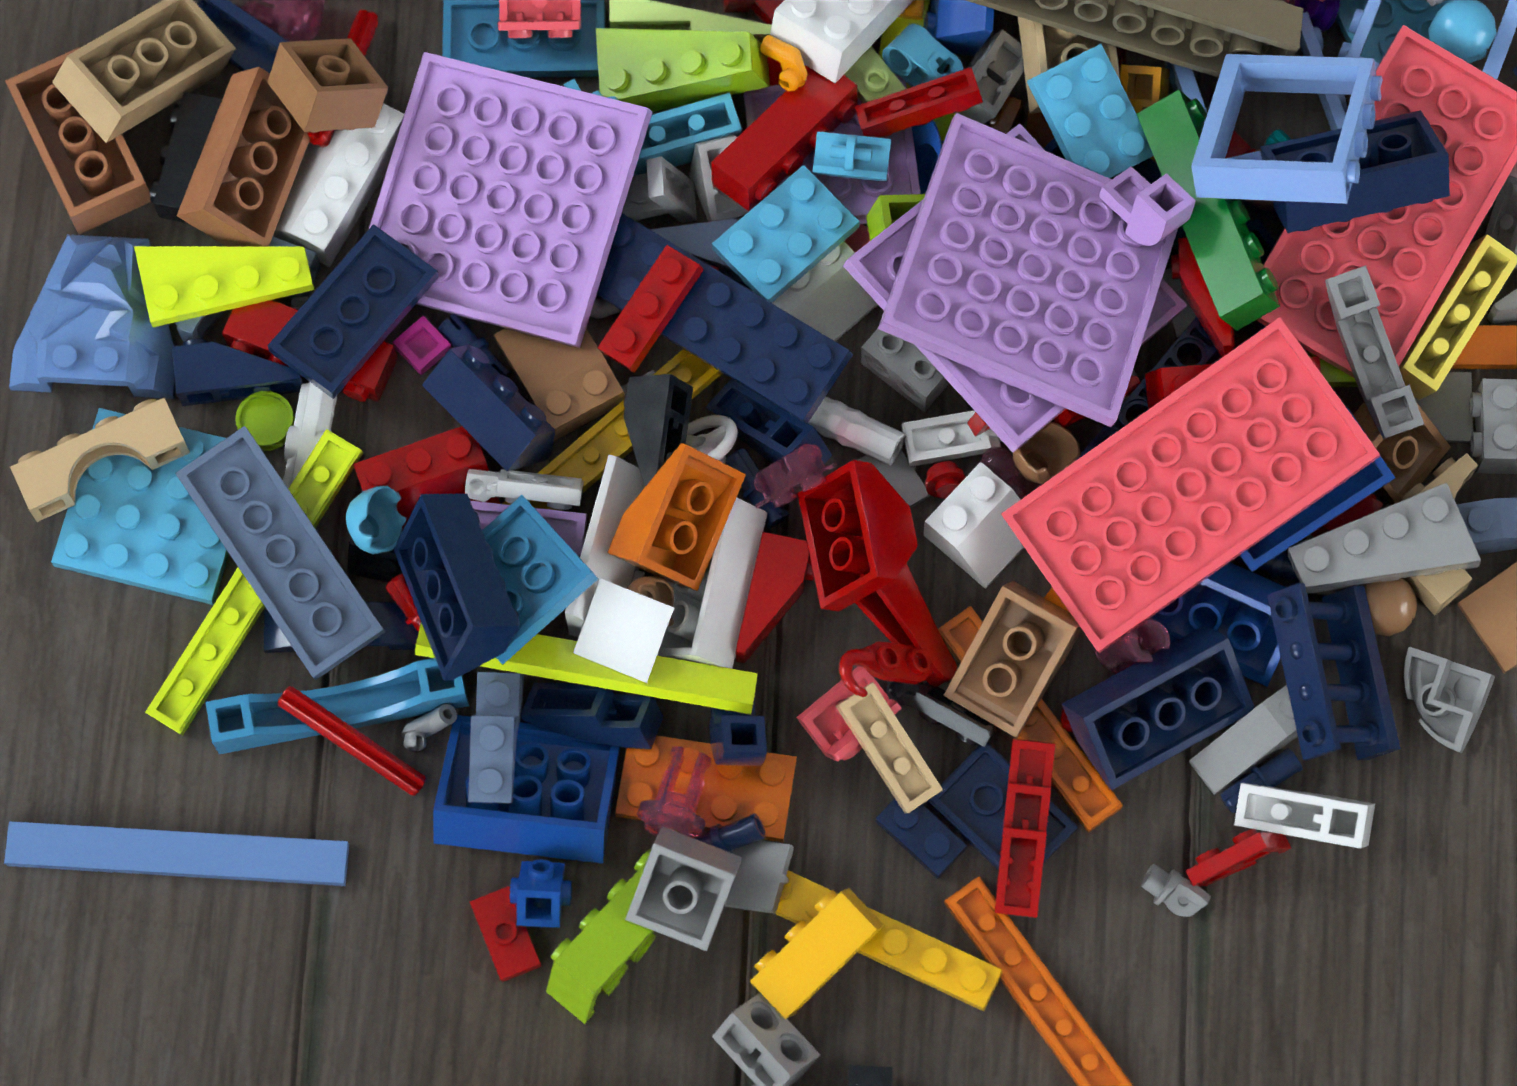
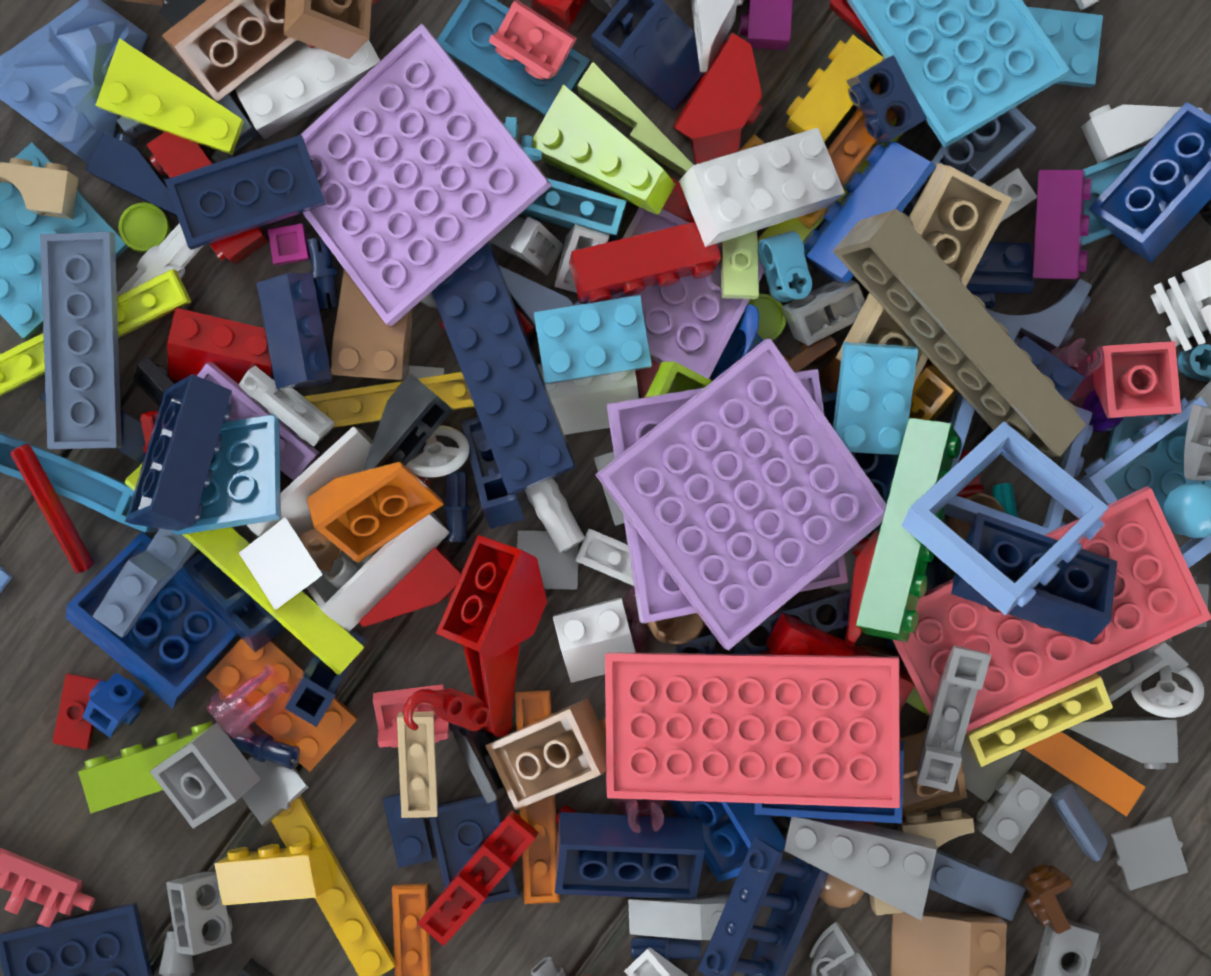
camera: 35 degrees right, 15 degrees up
(375, 519) = (160, 363): medium azure hair -> none
(426, 726) = (106, 527): light grey arm -> none
(650, 308) = (456, 333): red plate -> none
(791, 62) = (683, 207): light orange arm -> none
(805, 472) = (477, 525): clear pink hinge -> none
(852, 156) = (678, 312): medium azure hips -> none
(919, 104) = (755, 303): red plate -> none
(943, 479) = (592, 589): red plate -> none
(1148, 208) = (861, 506): lavender brick -> none

